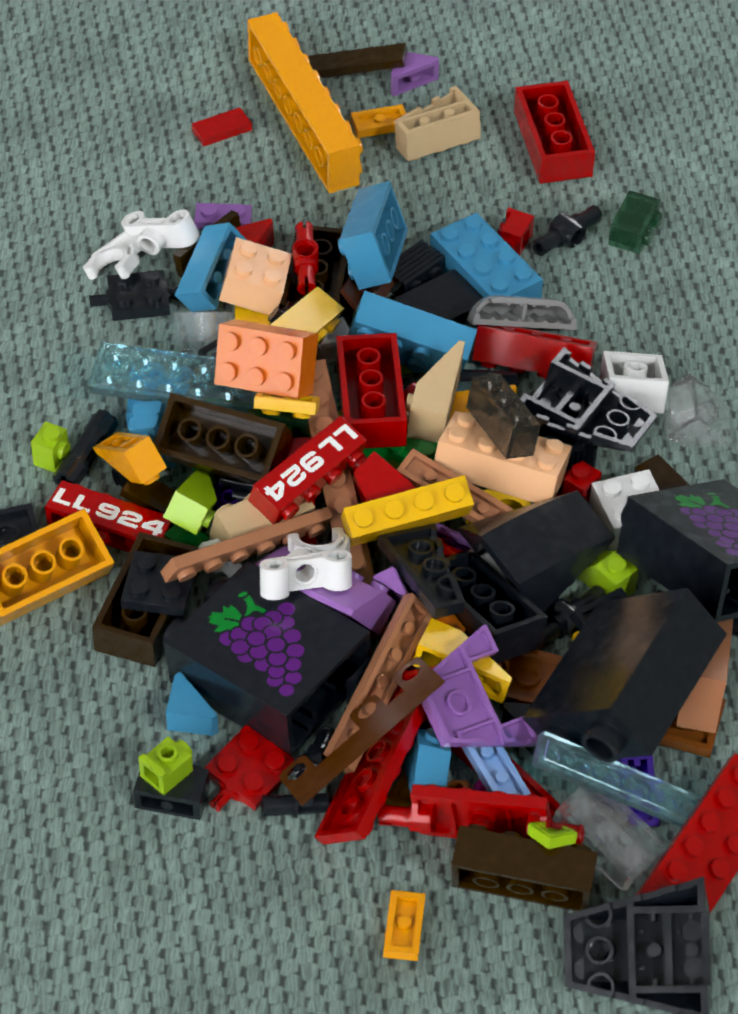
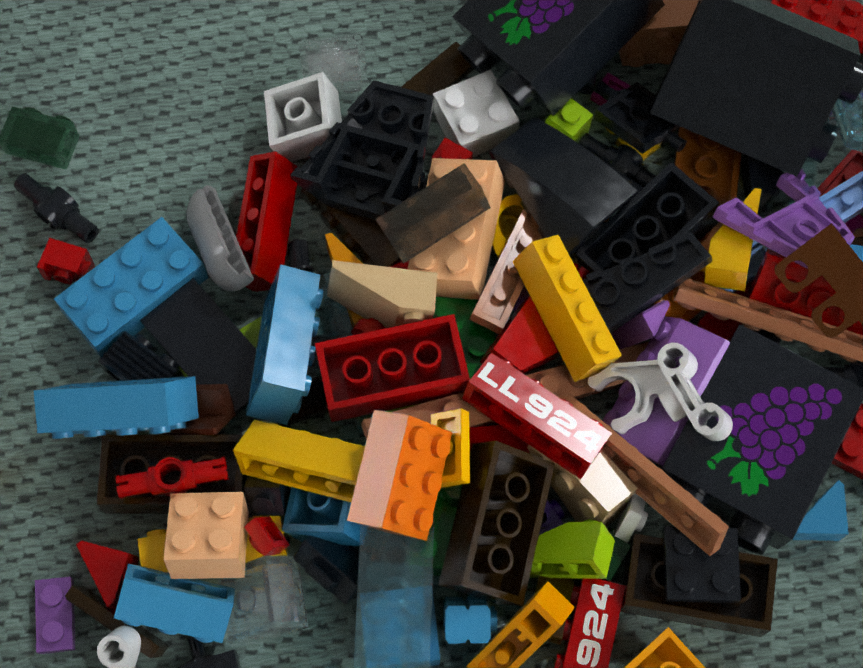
camera: 100 degrees left, 20 degrees up
(249, 310) = (266, 536): none -> red plate

